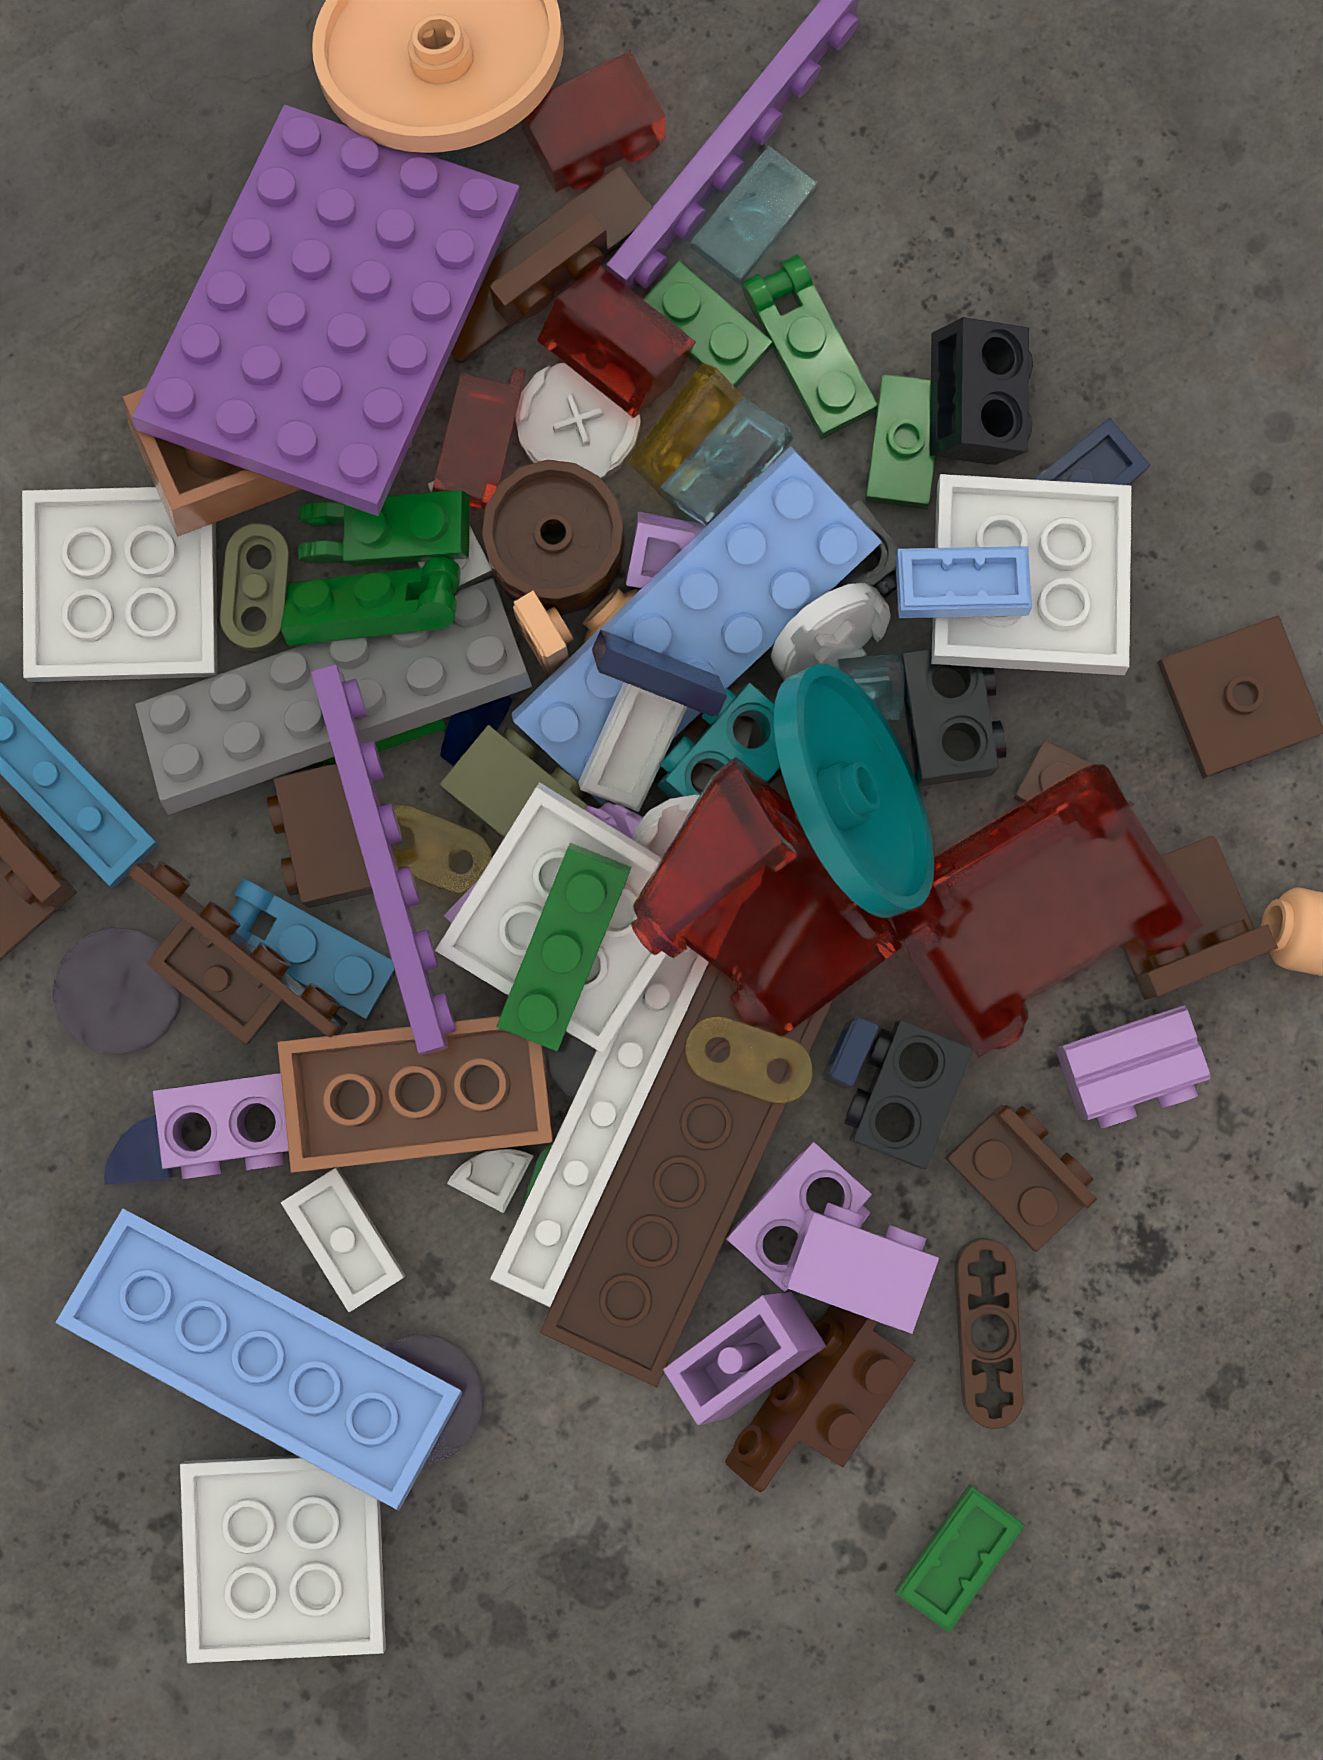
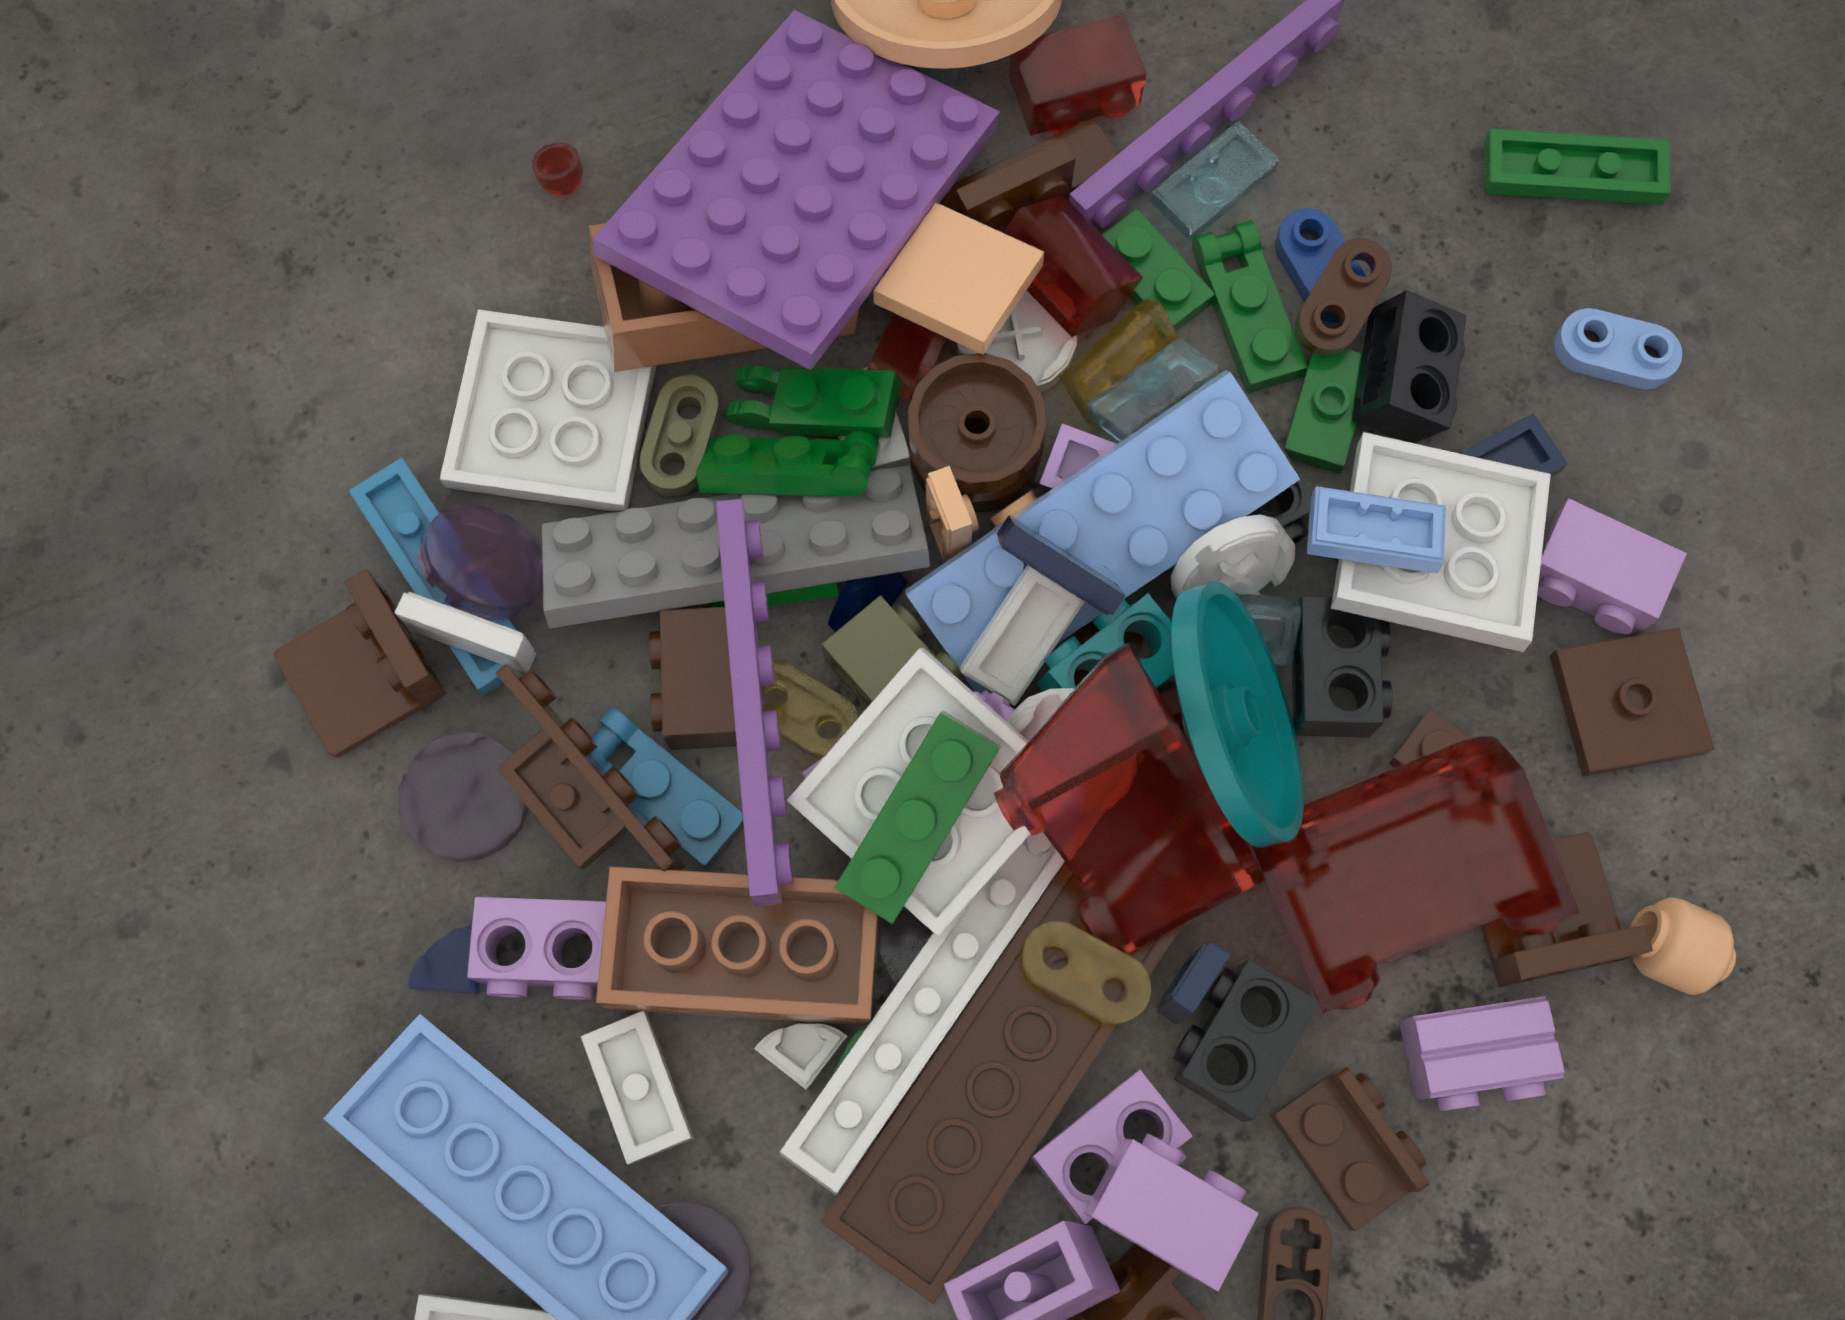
camera: 10 degrees right, 10 degrees down
(70, 319) = (558, 168): none -> clear red hinge
(85, 756) = (481, 561): none -> clear purple tile
(87, 834) = (465, 631): none -> white tile
(508, 382) = (958, 278): none -> light nougat tile
(875, 286) = (1307, 259): none -> blue plate
(902, 326) = (1345, 295): none -> reddish brown plate
(1125, 136) = (1577, 166): none -> green plate
(1191, 330) = (1621, 349): none -> light blue plate
(1197, 569) = (1606, 569): none -> lavender brick

